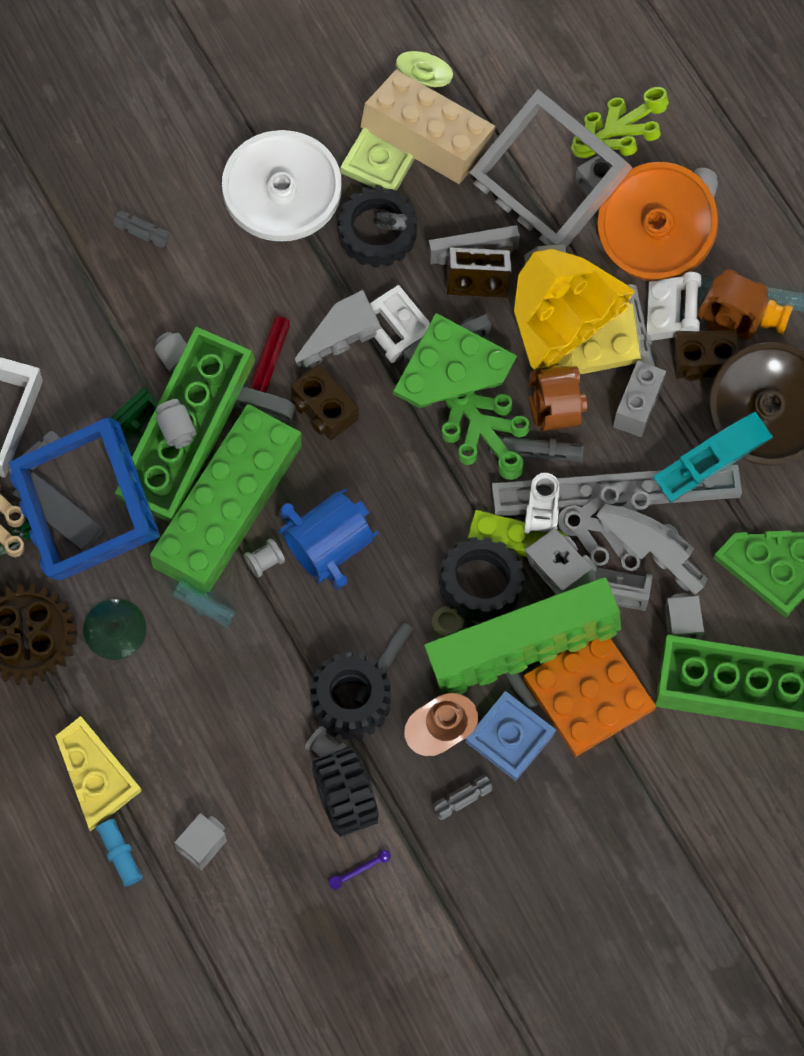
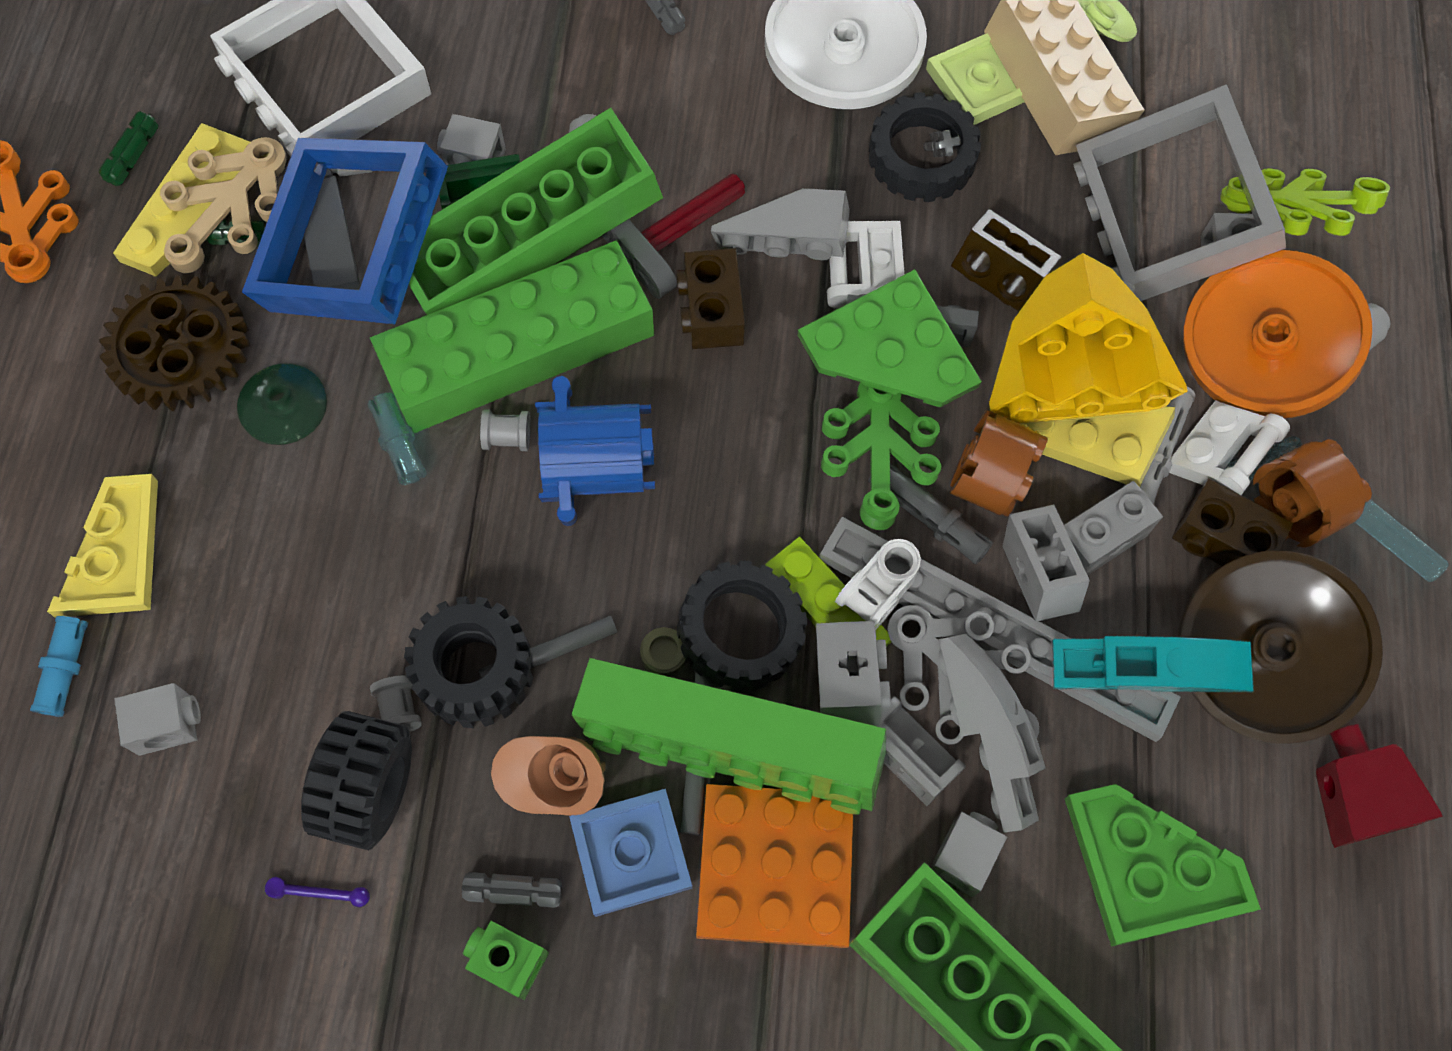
camera: 35 degrees right, 0 degrees up
(103, 398) = (470, 140): none -> light grey brick
(175, 423) = (500, 200): light grey brick -> none
(495, 239) = (1056, 236): light grey plate -> none
(496, 839) = (520, 970): none -> bright green brick
(620, 437) = (1045, 563): none -> light grey brick
(776, 316) = (1358, 541): light orange wheel -> none

